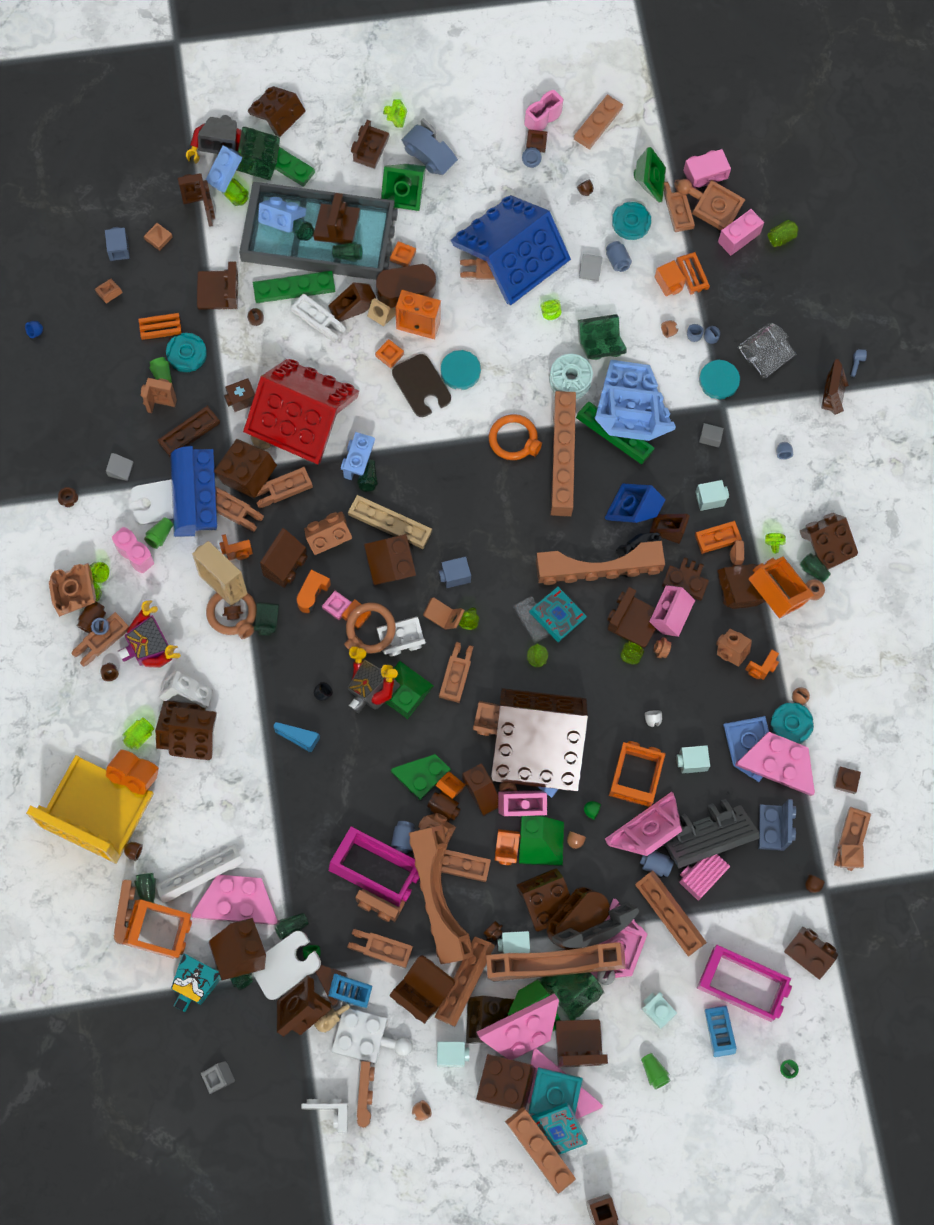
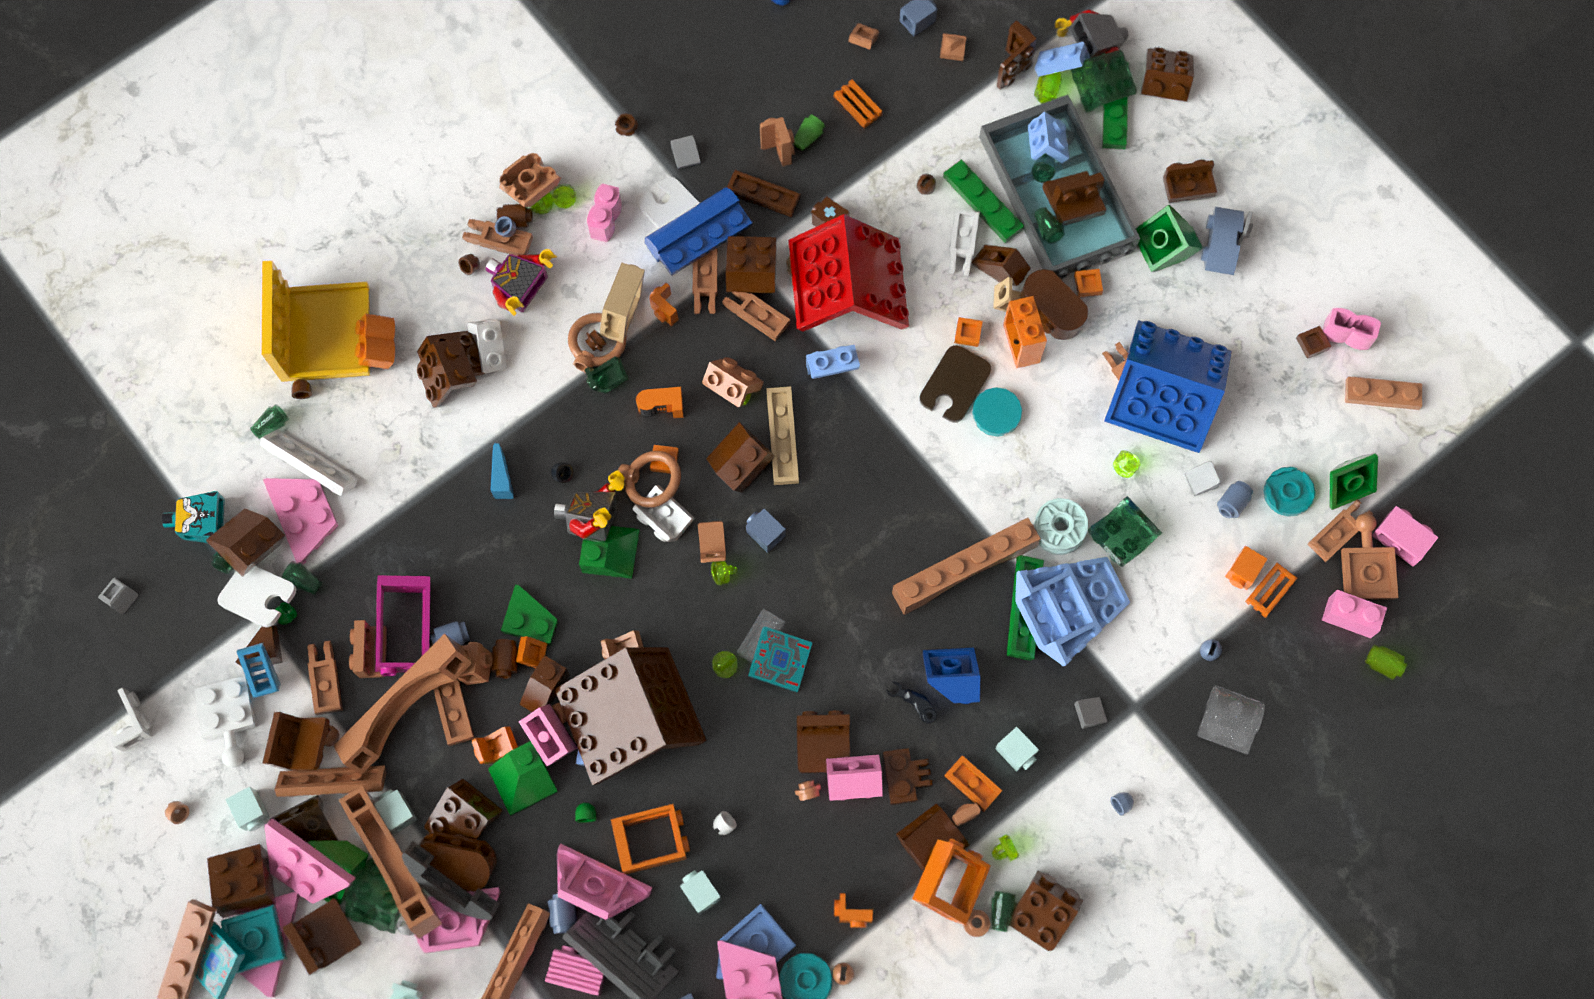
camera: 65 degrees right, 0 degrees up
(123, 913) = (234, 414): nougat hinge -> none
(136, 921) = (239, 424): orange window -> none
(137, 734) = (419, 325): clear neon green brick -> none
(158, 533) = (637, 226): bright green cone -> none
(186, 352) = (846, 143): teal tile -> none
(218, 288) = (932, 132): reddish brown bracket -> none
(283, 559) = (676, 353): reddish brown slope -> none
(300, 1008) = (216, 632): reddish brown bracket -> none
(330, 1019) = (224, 666): tan piece -> none
(336, 605) = (663, 434): bright pink tile -> none
(365, 1095) = (164, 745): nougat hinge -> none
(369, 480) = (816, 388): clear green cone -> none
(396, 113) = (1245, 187): clear neon green tile -> none
(456, 675) = (656, 592): nougat hinge -> none
(493, 931) = (399, 782): reddish brown plate -> none
(531, 157) = (1290, 347): sand blue plate -> none
(531, 447) = (955, 530): orange piece -> none
(556, 567) = (897, 714): nougat arch -> none
(575, 840) = (543, 813): nougat hinge -> none
(585, 188) = (1295, 421): reddish brown hinge -> none
(632, 653) = (784, 761): clear neon green tile -> none
(669, 329) = (1185, 599): nougat hinge -> none
(670, 526) = (952, 724): reddish brown slope -> none
(695, 332) = (1199, 629): sand blue hinge -> none
(719, 379) = (1162, 686): teal tile -> none
(733, 647) = (852, 867): nougat brick -> none
(834, 388) = (1230, 820): reddish brown slope -> none
(859, 355) = (1294, 828): sand blue hand -> none

